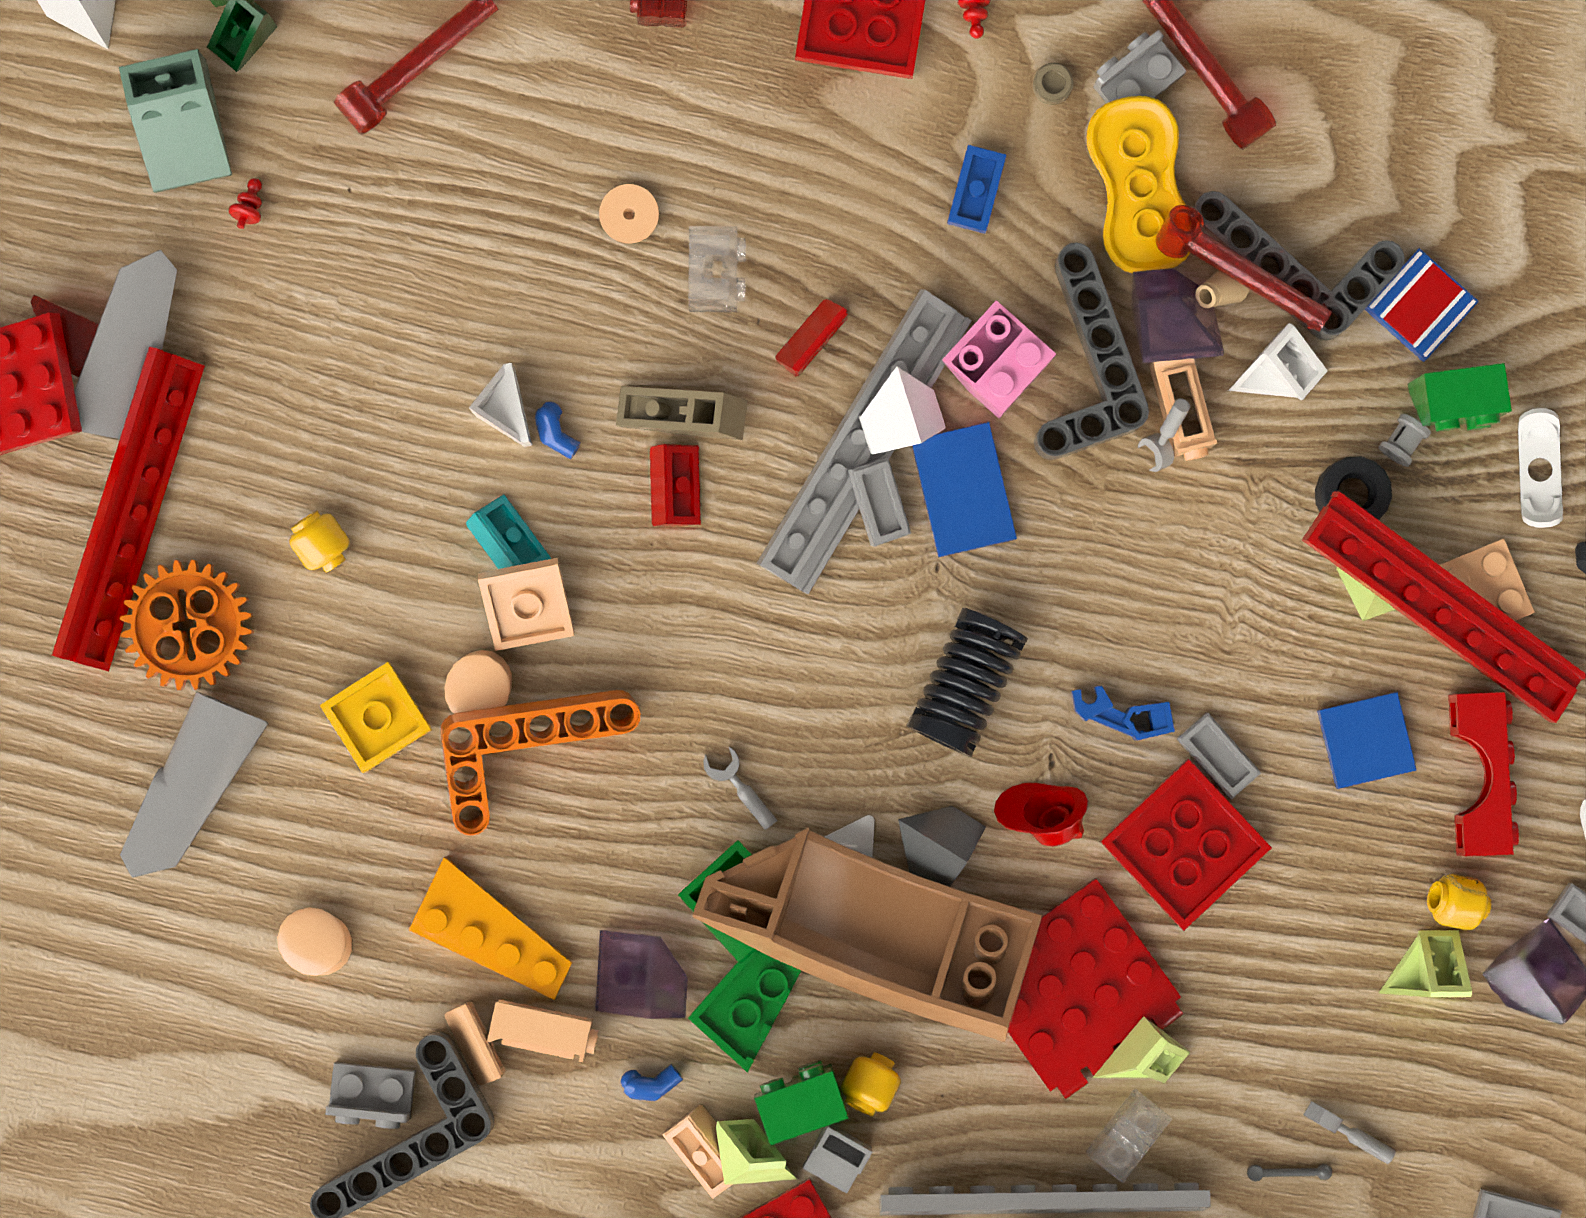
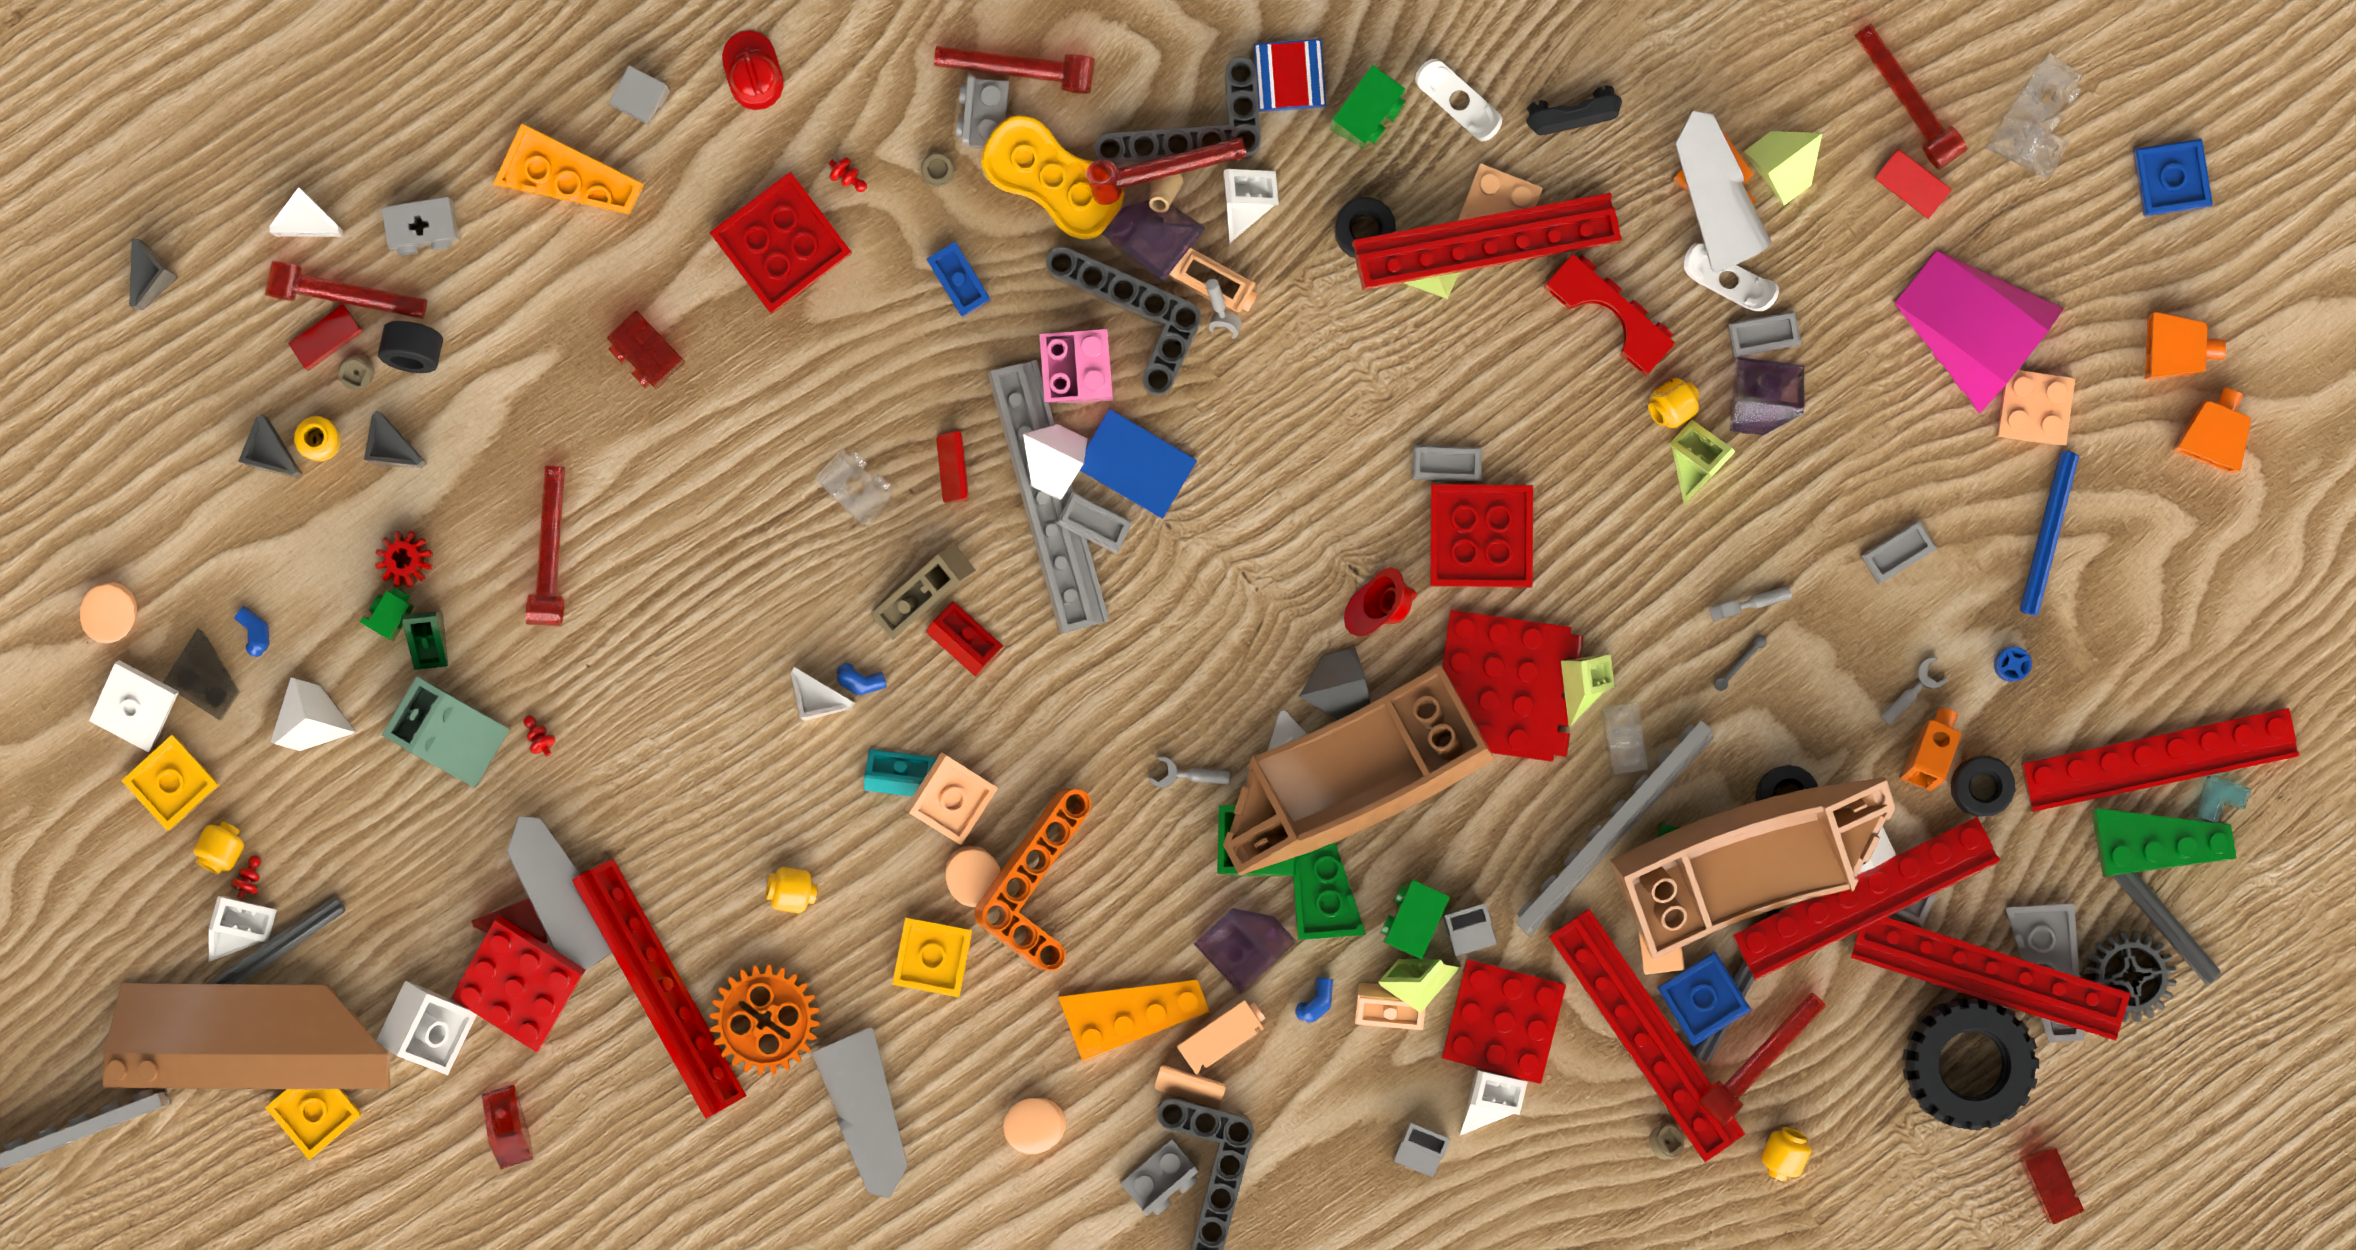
camera: 45 degrees left, 0 degrees up
(629, 213) = (769, 507): light nougat piece -> none
(870, 1084) = (1444, 866): yellow head -> none
(956, 681) = (1249, 578): black piece -> none
(1103, 713) = (1354, 509): blue piece -> none
(1366, 740) = (1523, 364): blue tile -> none
(1404, 440) = (1362, 165): light grey bush -> none

